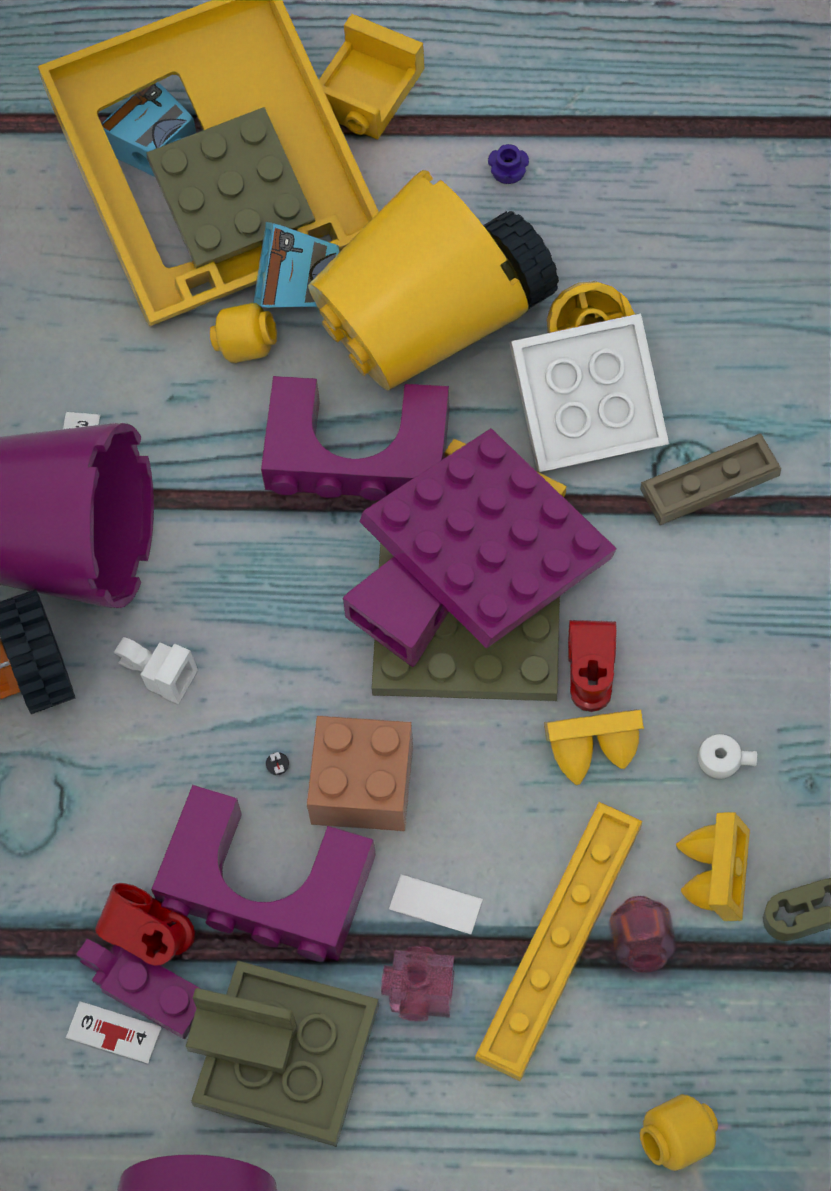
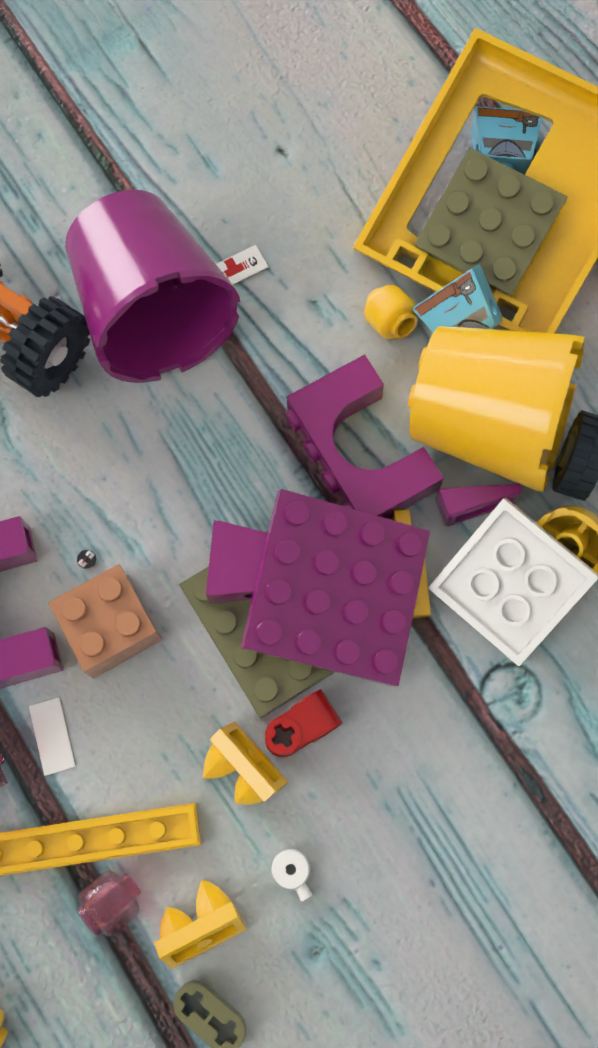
camera: 55 degrees right, 10 degrees up
(163, 672) = (102, 439): white piece -> none
(482, 389) = (466, 503): none -> magenta slope
(710, 479) = (515, 716): dark tan tile -> none

